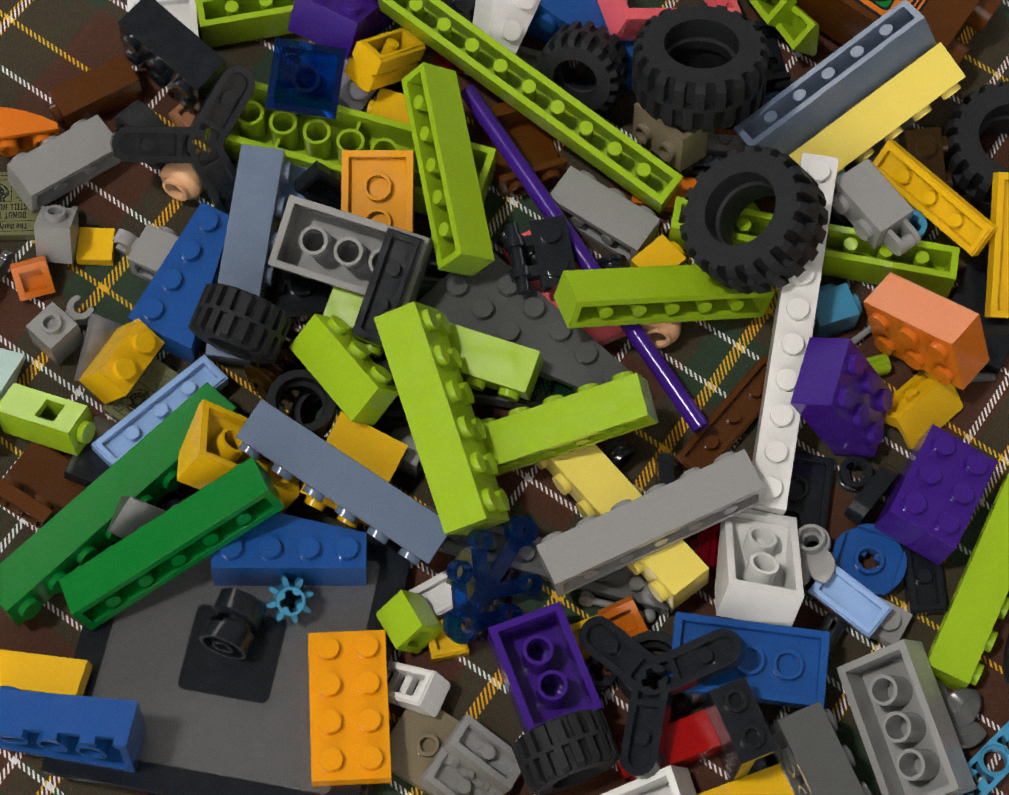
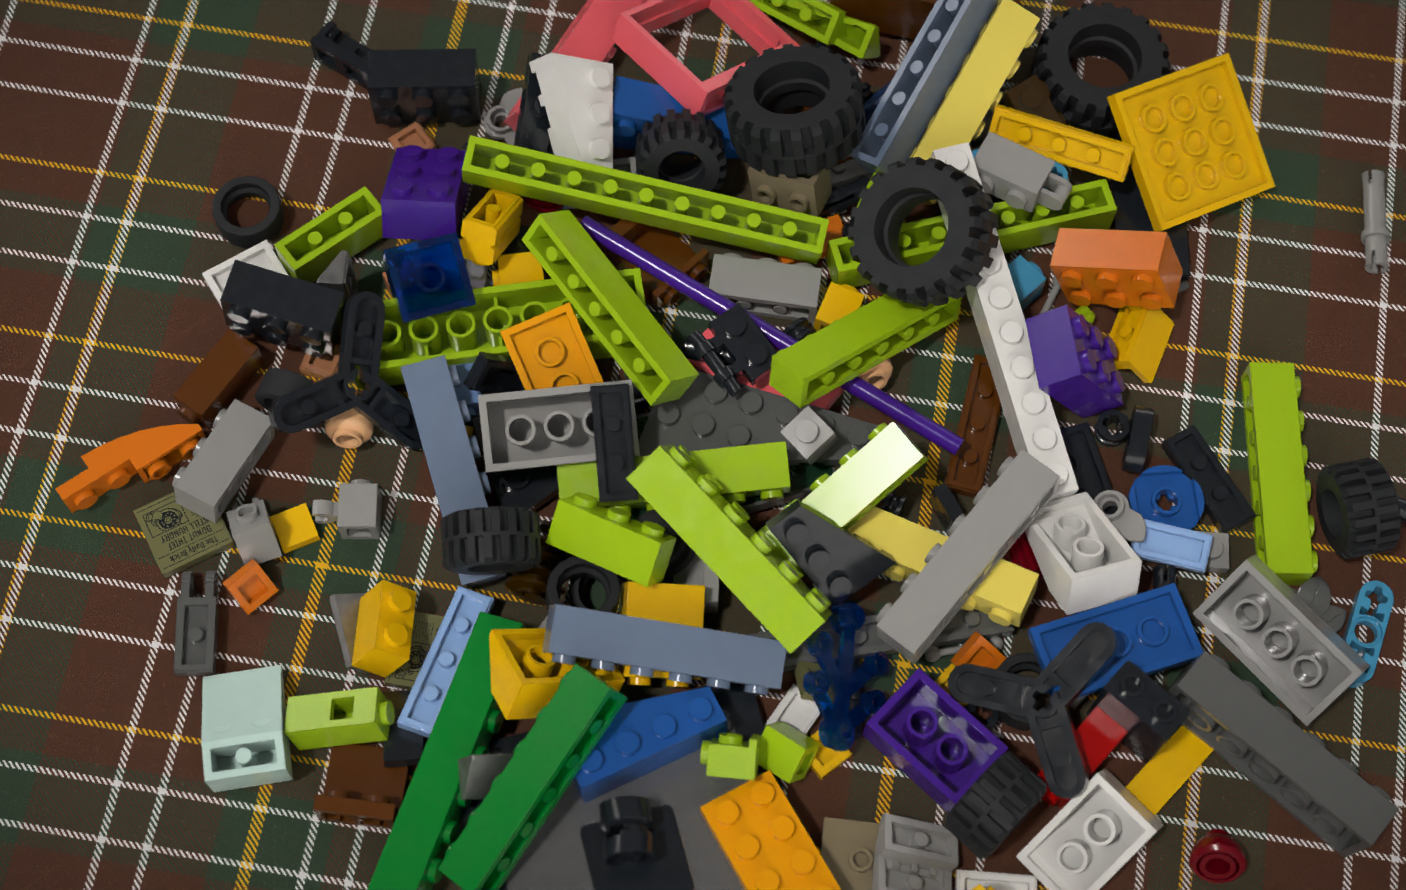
camera: 25 degrees left, 0 degrees up
(58, 331) = (304, 626): light grey brick -> none
(180, 280) = (406, 525): blue wedge -> none
(236, 48) = (340, 275): none -> flat silver slope
(279, 594) = (677, 782): dark azure gear -> none
(356, 602) = (731, 756): none -> lime brick
(428, 694) = (838, 810): white slope -> none
(526, 464) = (827, 553): none -> black wing
(565, 356) = (809, 435): none -> light grey brick
(935, 495) = (1197, 415): dark purple brick -> none

